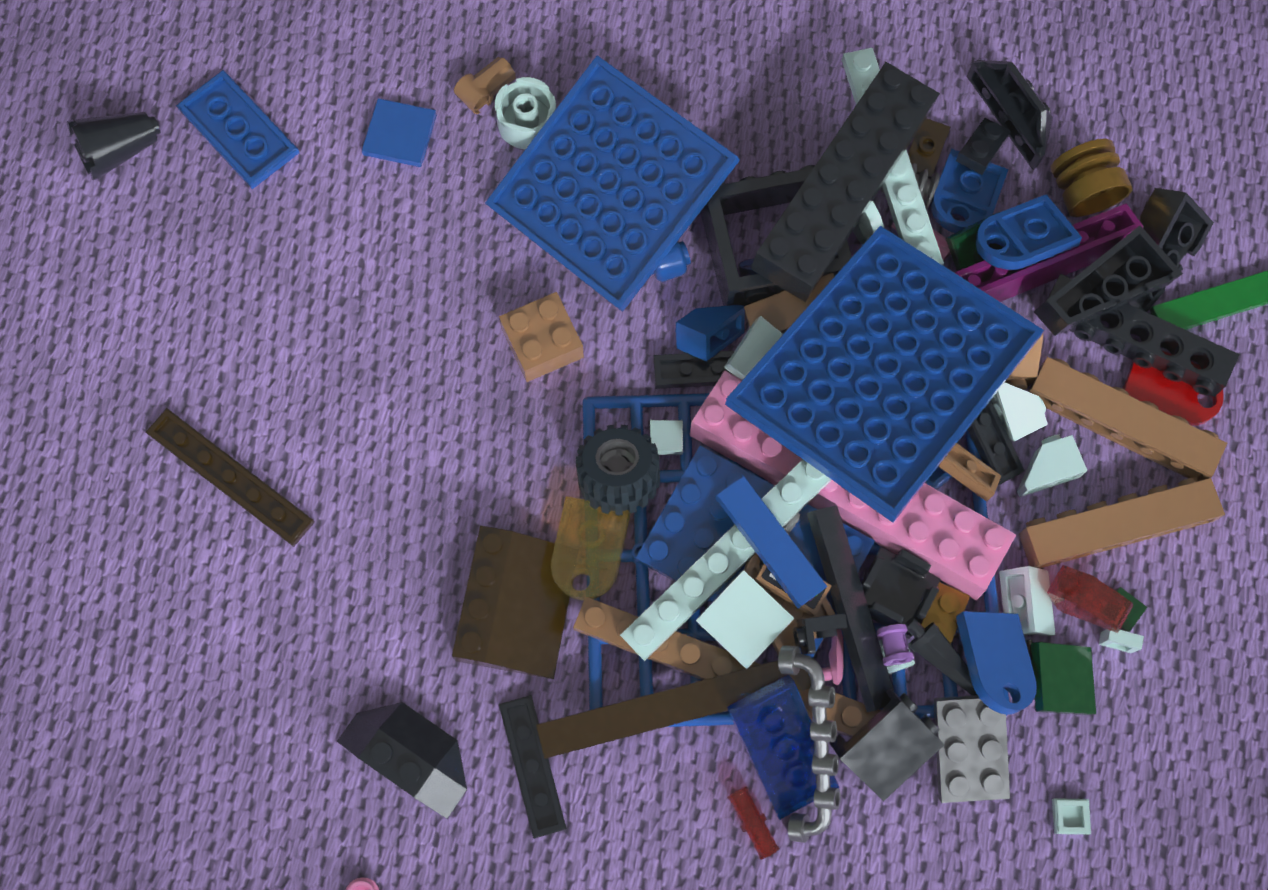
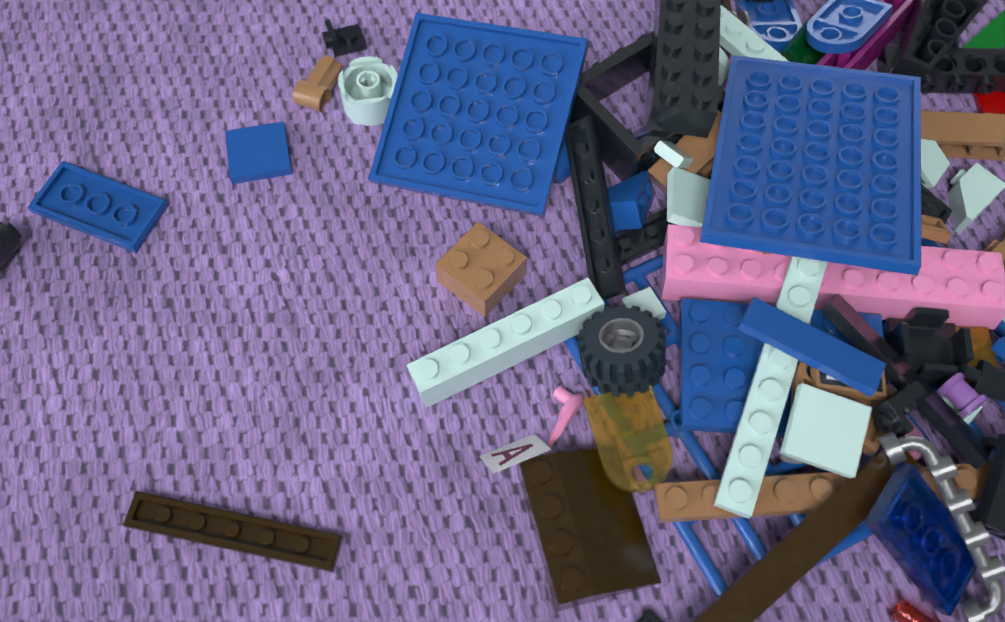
camera: 25 degrees left, 10 degrees down
(484, 516) = (514, 453): none -> white sticker
(524, 415) = (504, 342): none -> light aqua brick
(532, 43) = (344, 39): none -> black bracket
(552, 501) = (567, 412): none -> bright pink bar
(668, 323) = (594, 208): none -> black tile
(768, 304) = (673, 154): none -> light aqua tile

